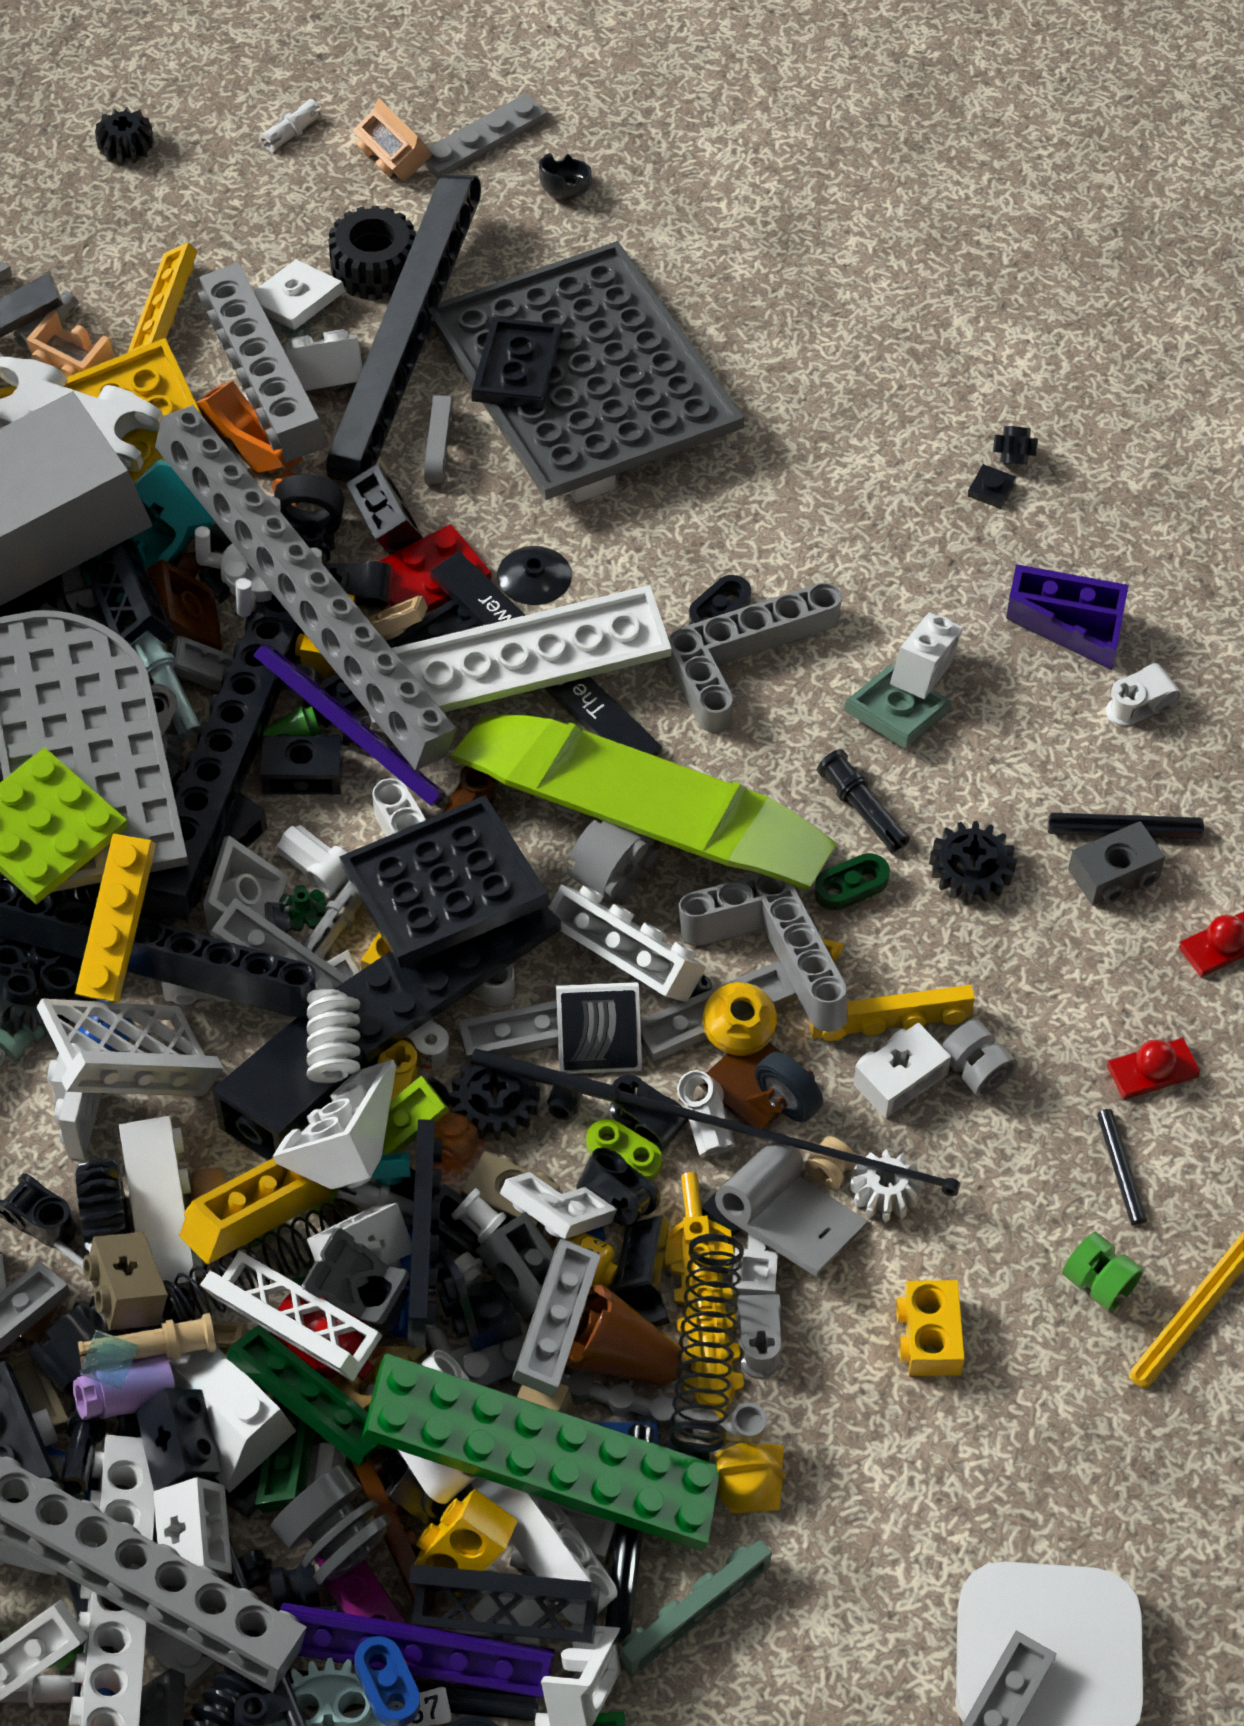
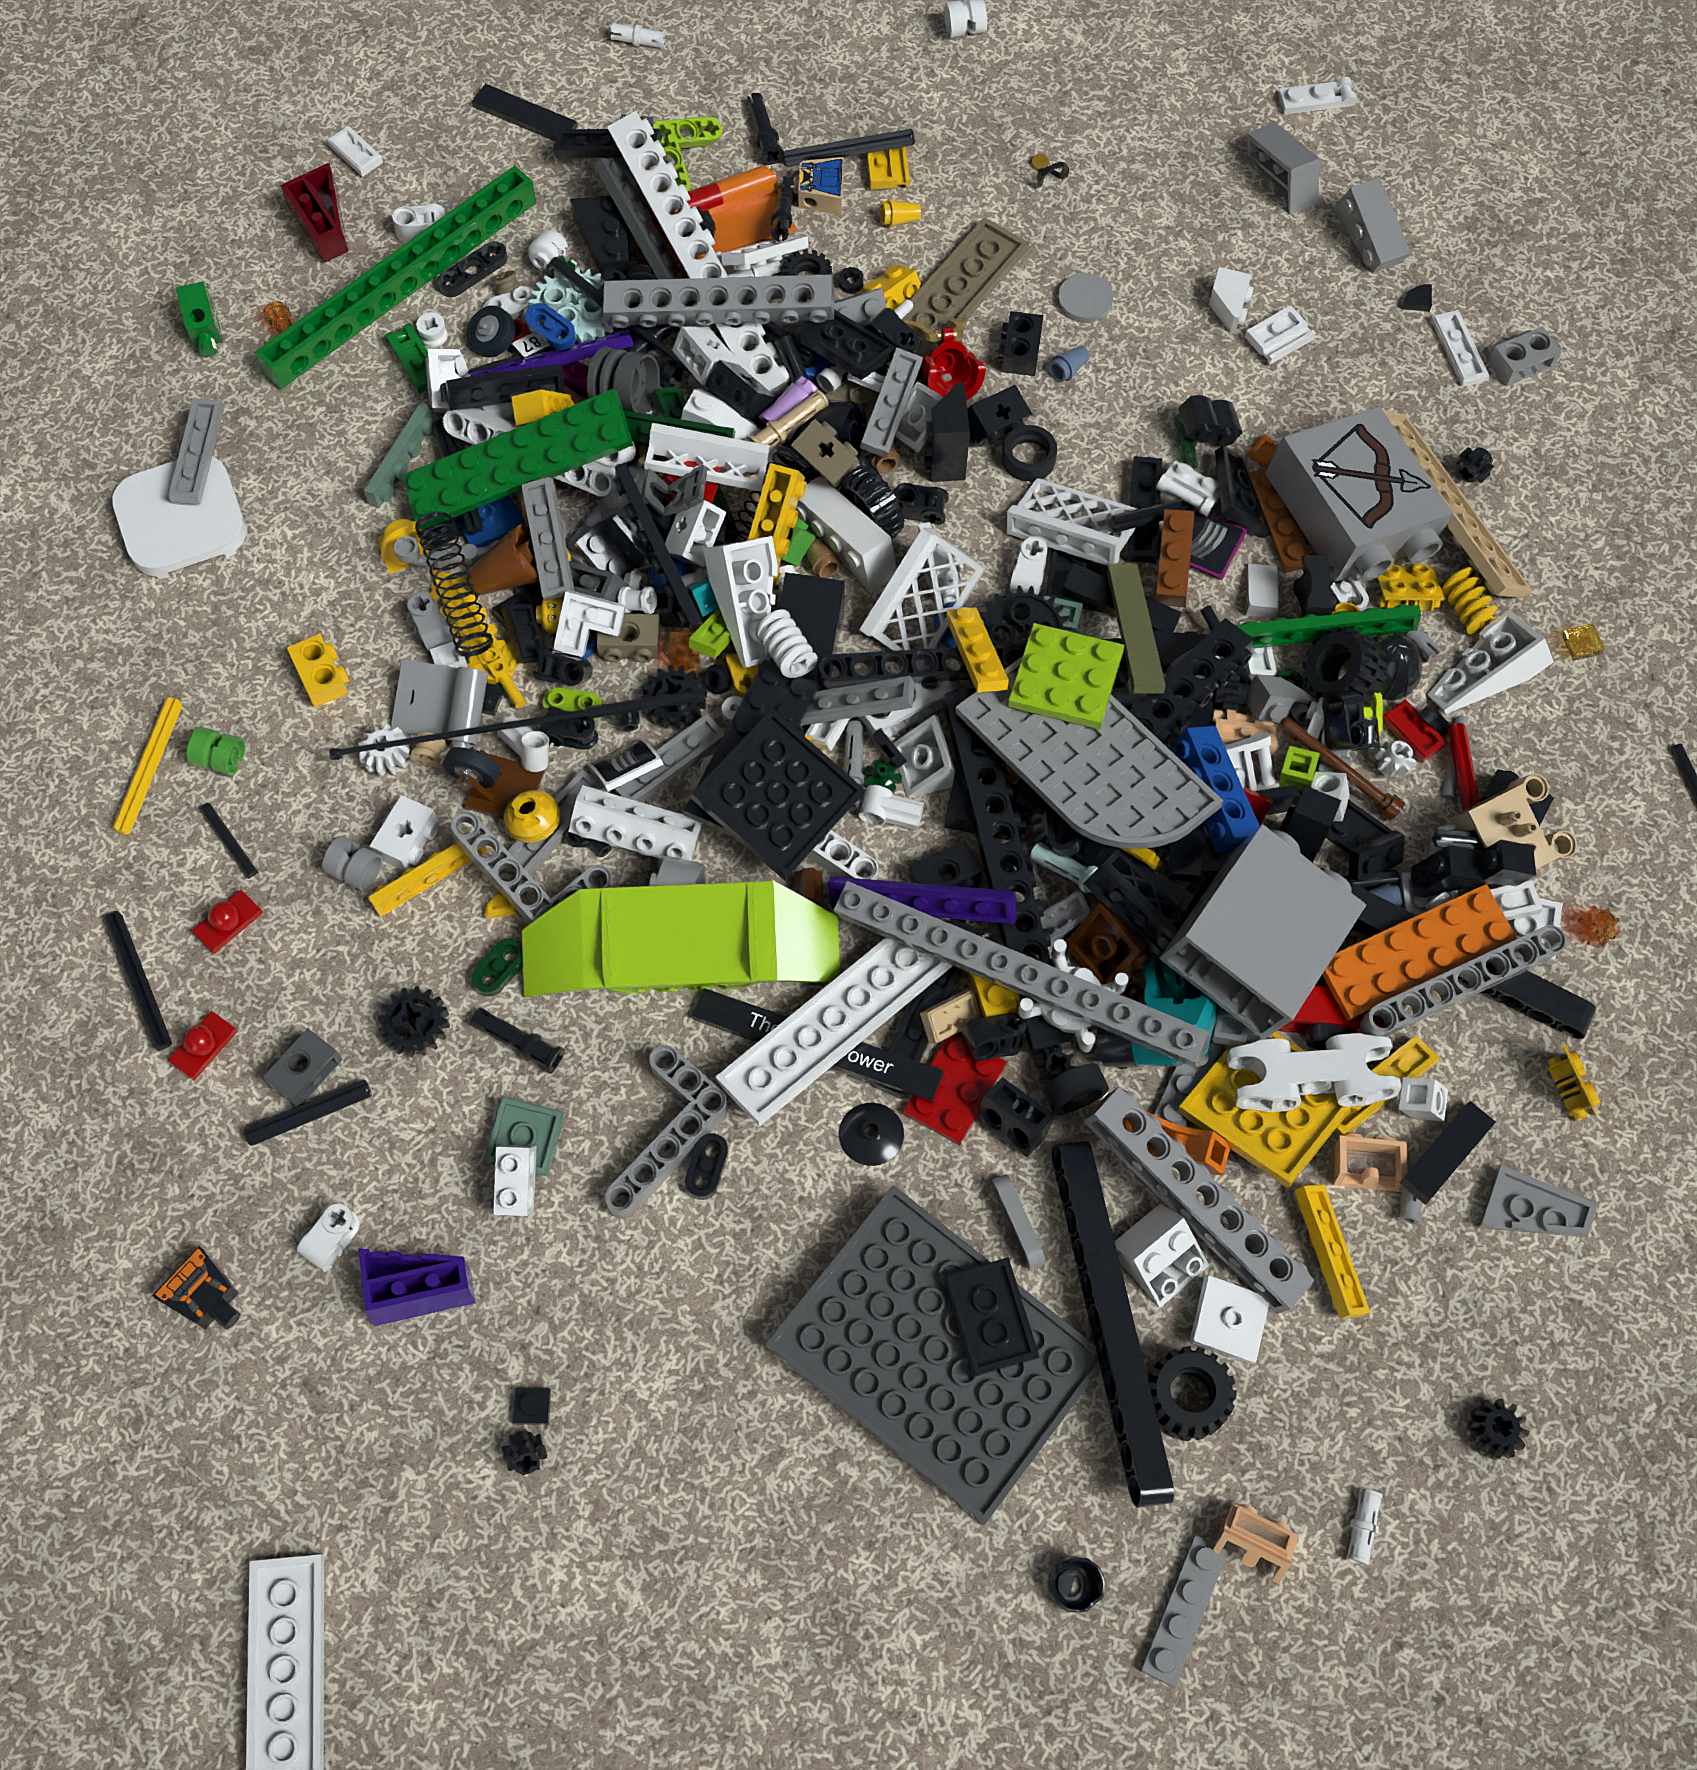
camera: 155 degrees right, 10 degrees up
(109, 1359) = (800, 393): clear light blue plate -> none

